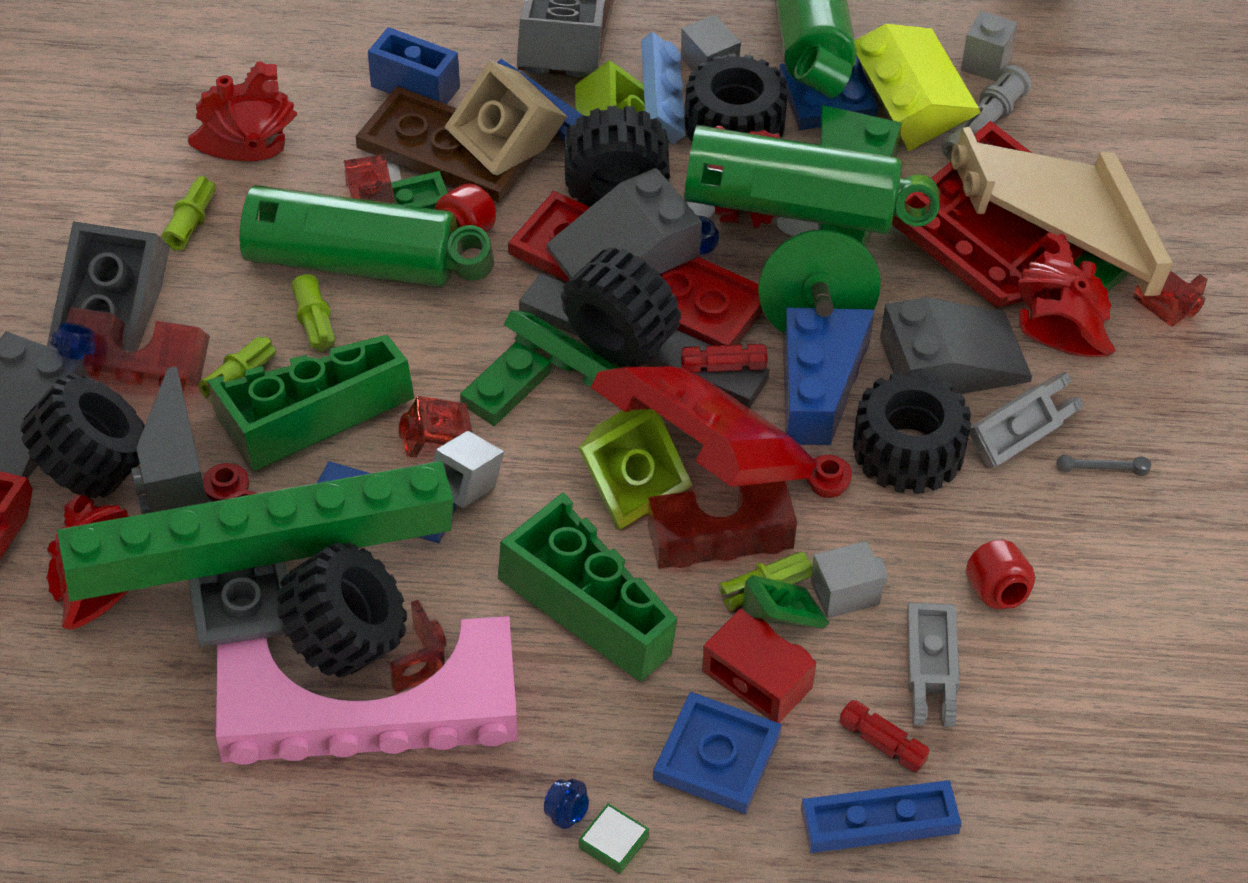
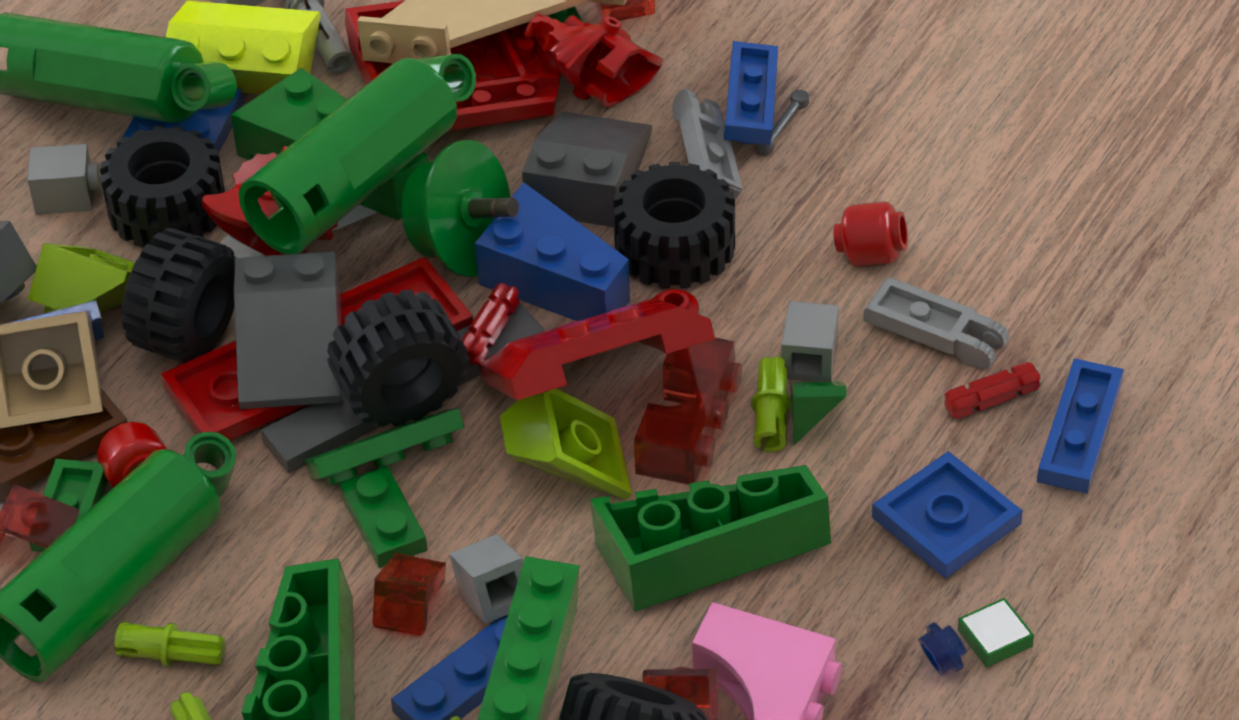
camera: 60 degrees left, 5 degrees down
(663, 85) = (80, 231): light blue plate -> none
(759, 665) = (870, 444): red brick -> none
(1109, 424) = (751, 93): none -> blue plate

